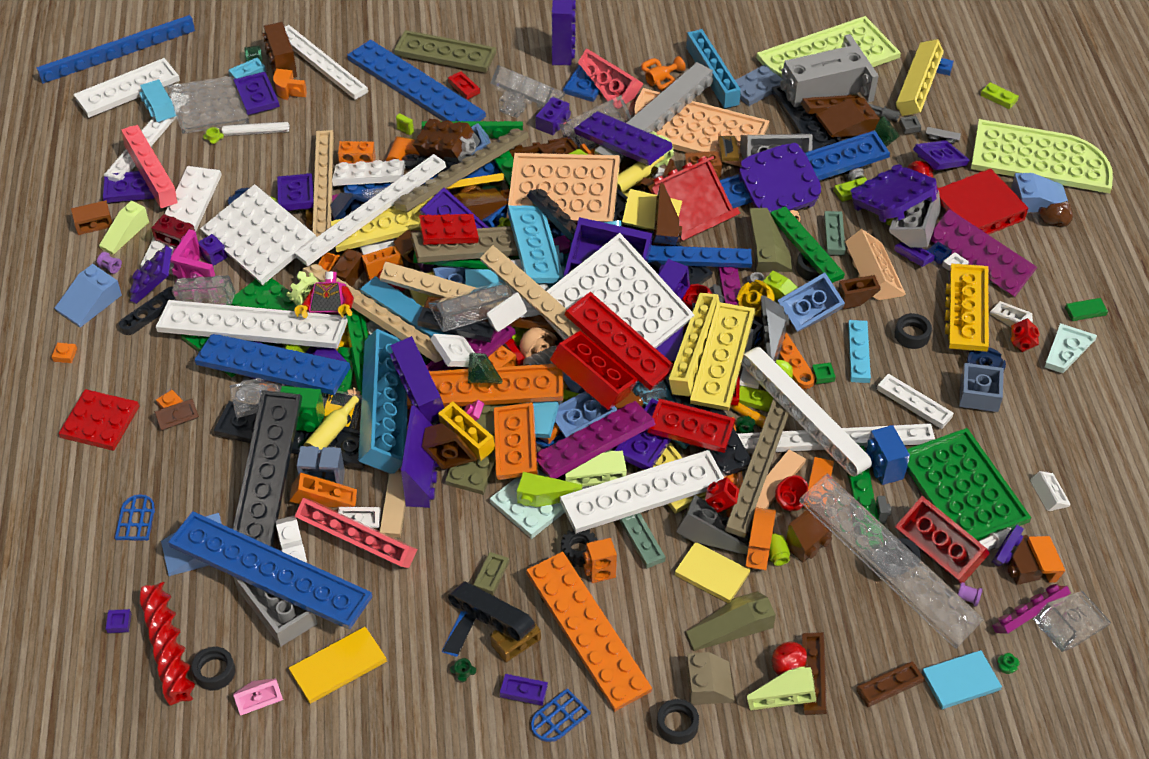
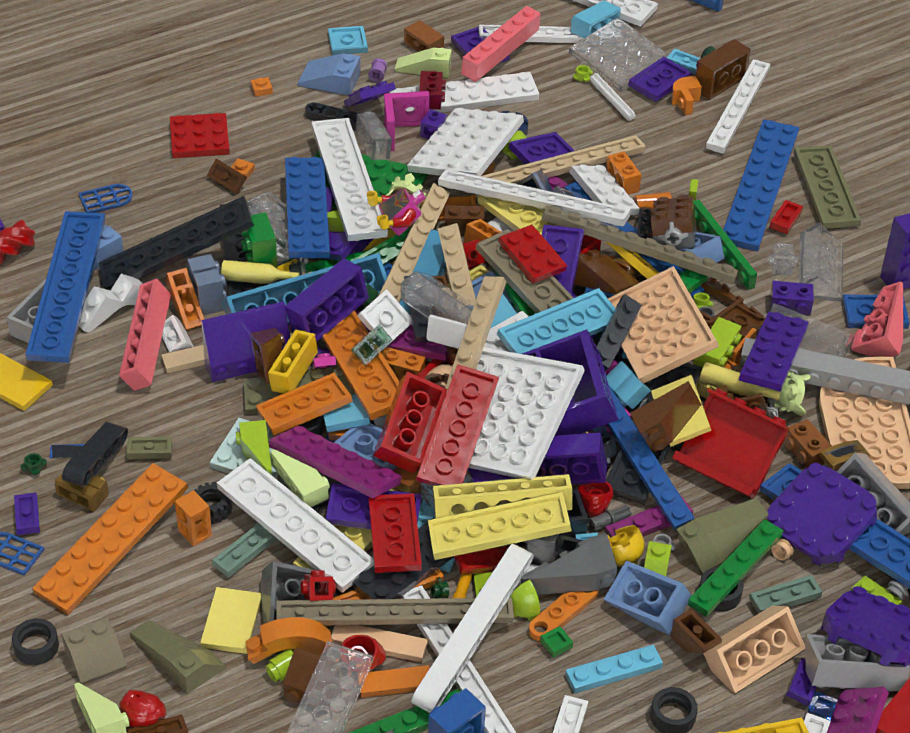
camera: 65 degrees right, 5 degrees down
(46, 271) = (347, 40): none -> medium azure tile

